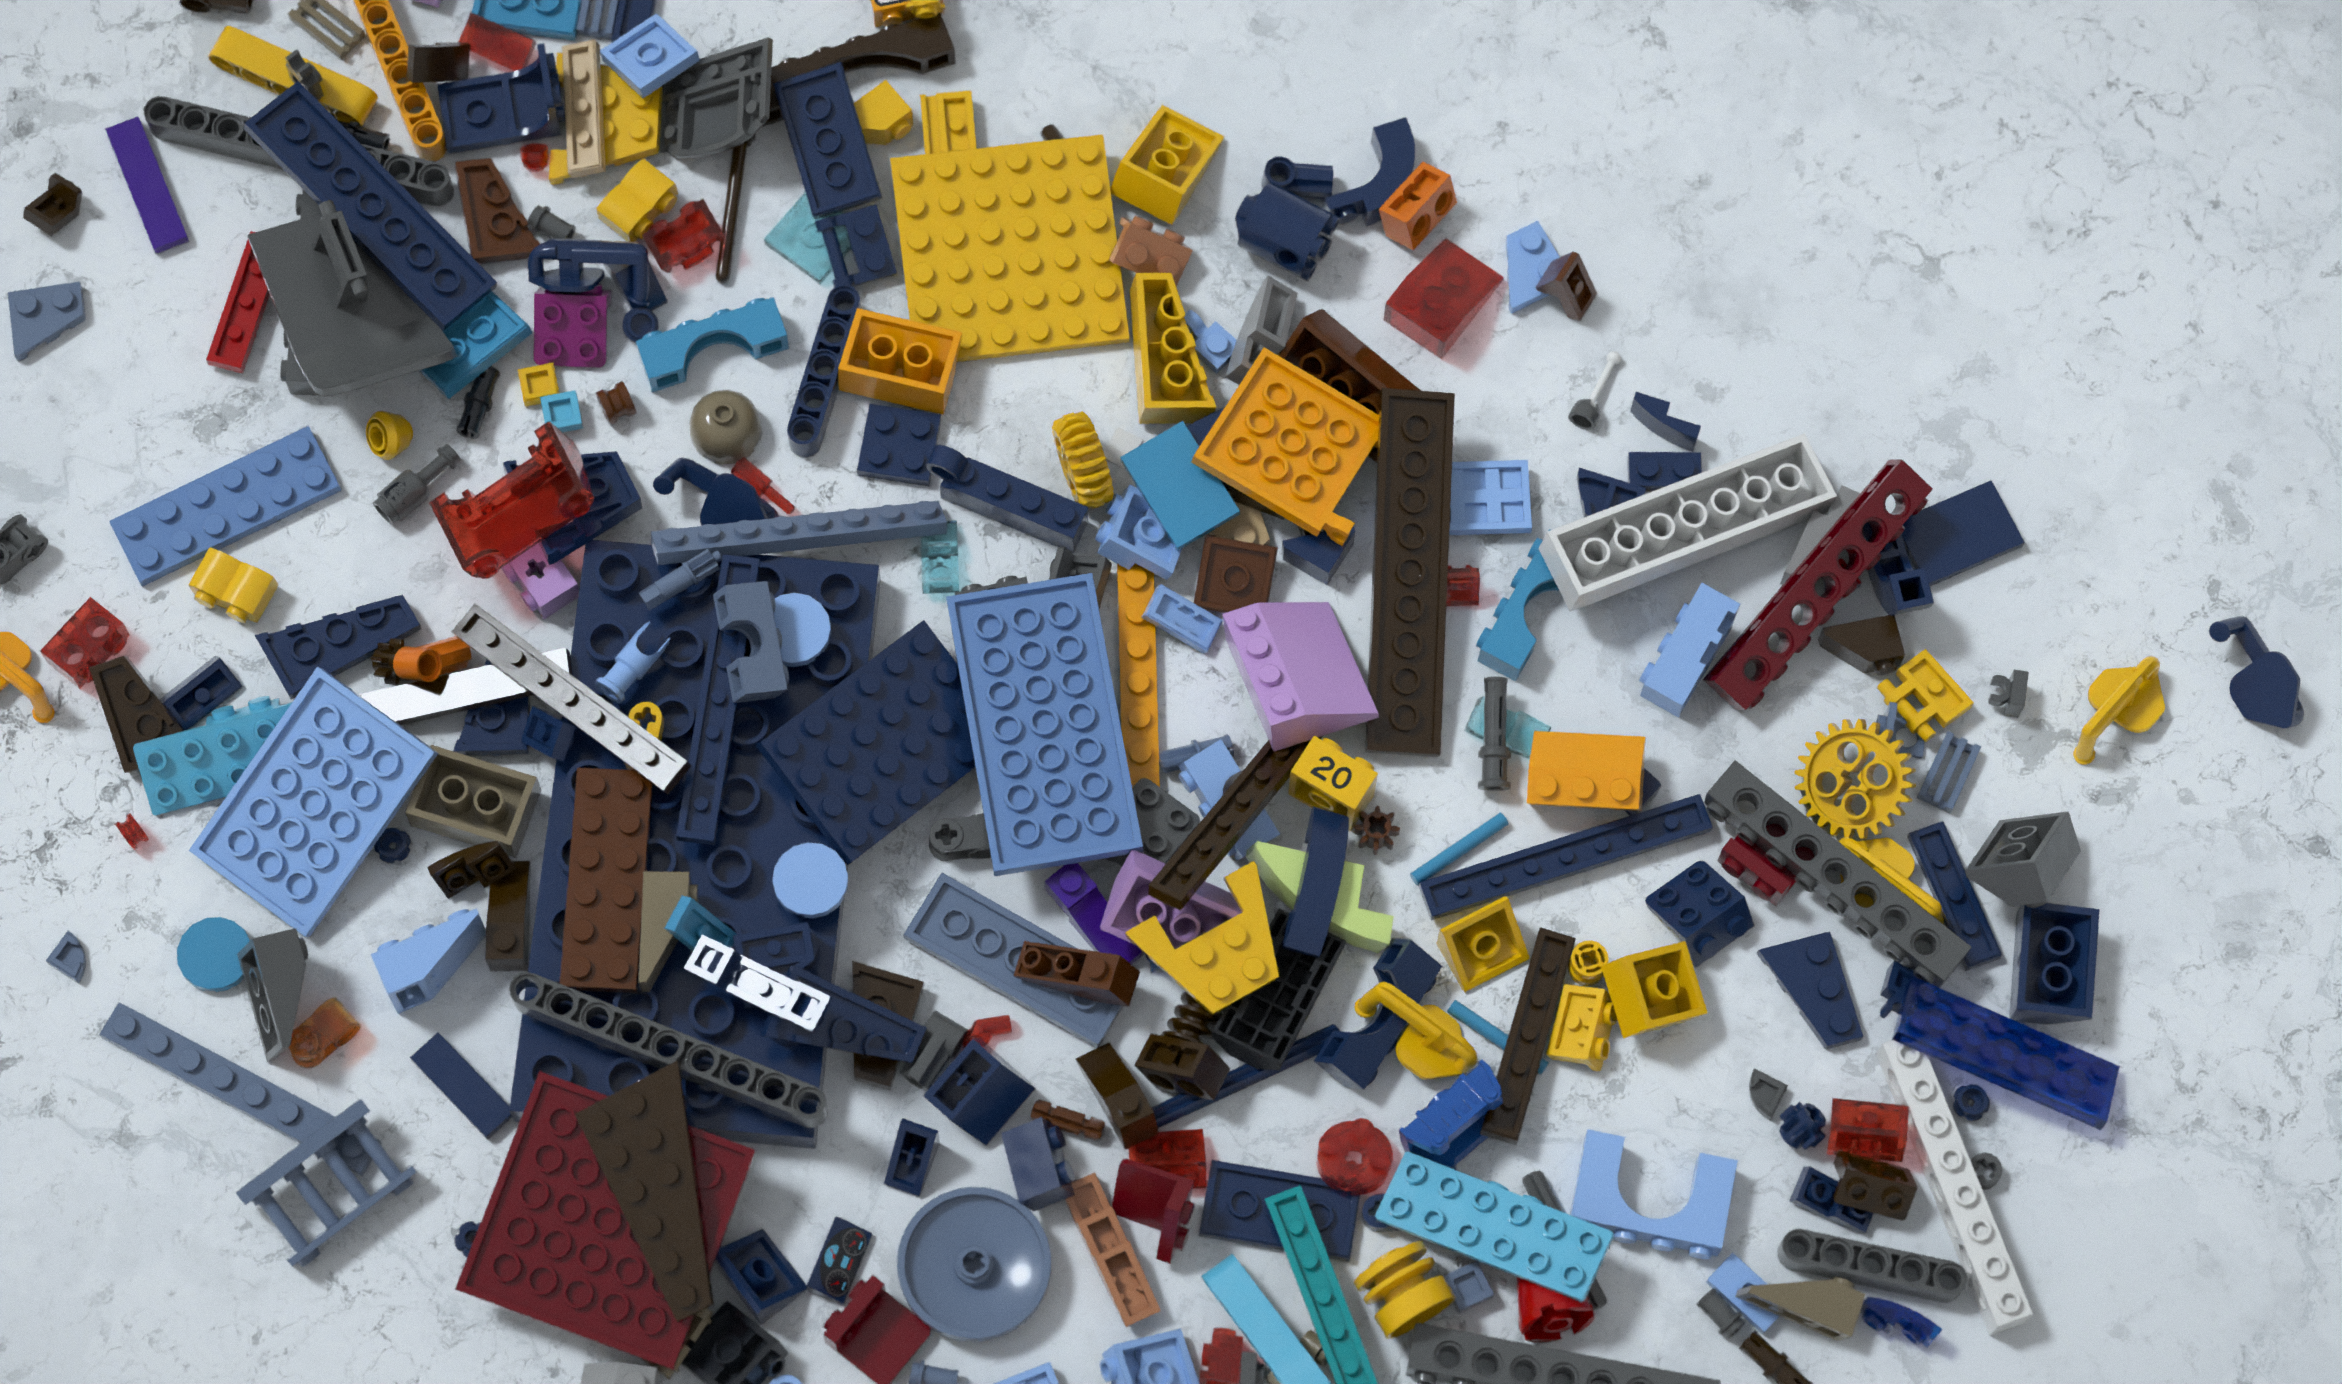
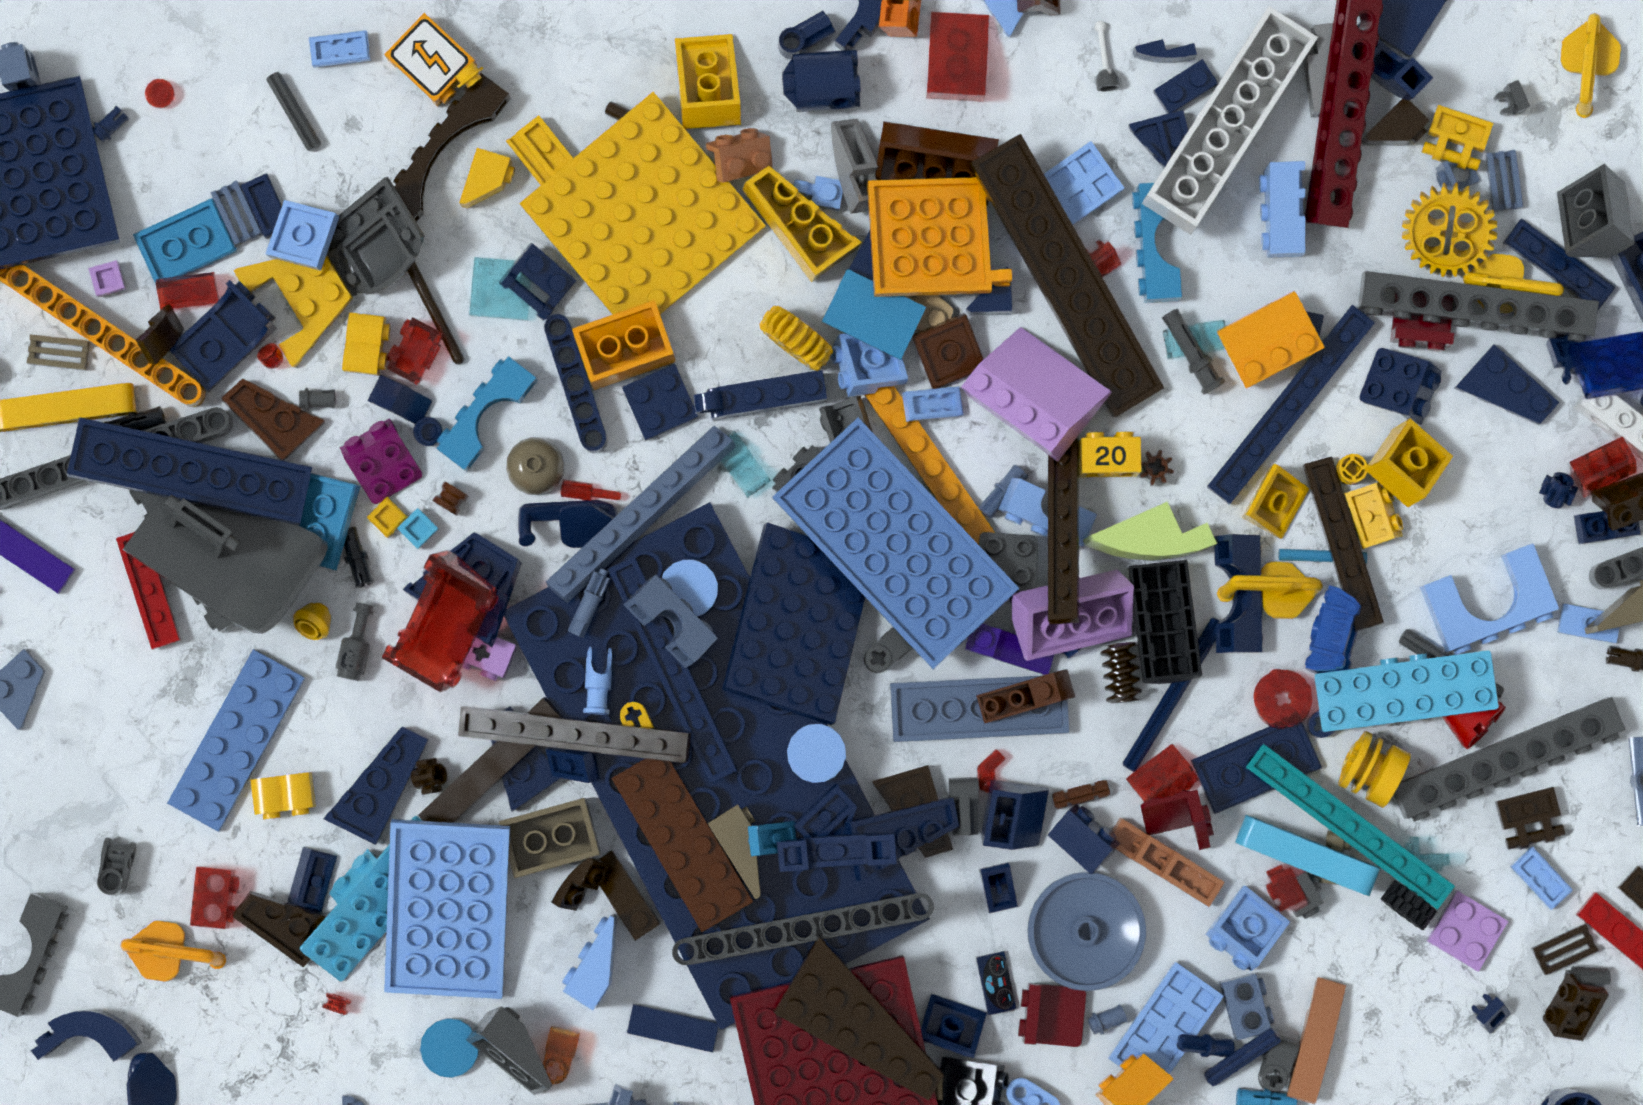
camera: 30 degrees left, 15 degrees up
(304, 73) = (79, 407): dark grey plate -> none
(389, 836) = (523, 899): dark blue plate -> none
(431, 660) = (455, 762): orange piece -> none
(576, 278) = (362, 421): dark blue piece -> none
(583, 108) = (282, 302): tan tile -> none
(827, 140) = (468, 218): dark blue tile -> none
(1118, 1095) = (1104, 758): dark brown slope -> none
(1119, 445) = (810, 306): white sticker -> none
(1182, 1066) = (1136, 715): dark brown brick -> none
(1225, 960) = (1122, 628): yellow wing -> none
(1318, 882) = (1146, 531): dark blue slope -> none
(1459, 848) = (1216, 443): dark azure bar -> none
(1469, 1286) = (1409, 737): sand blue plate -> none
(1721, 1313) = (1581, 648): dark grey pin -> none
(1765, 1093) = (1519, 481): dark grey tile -> none

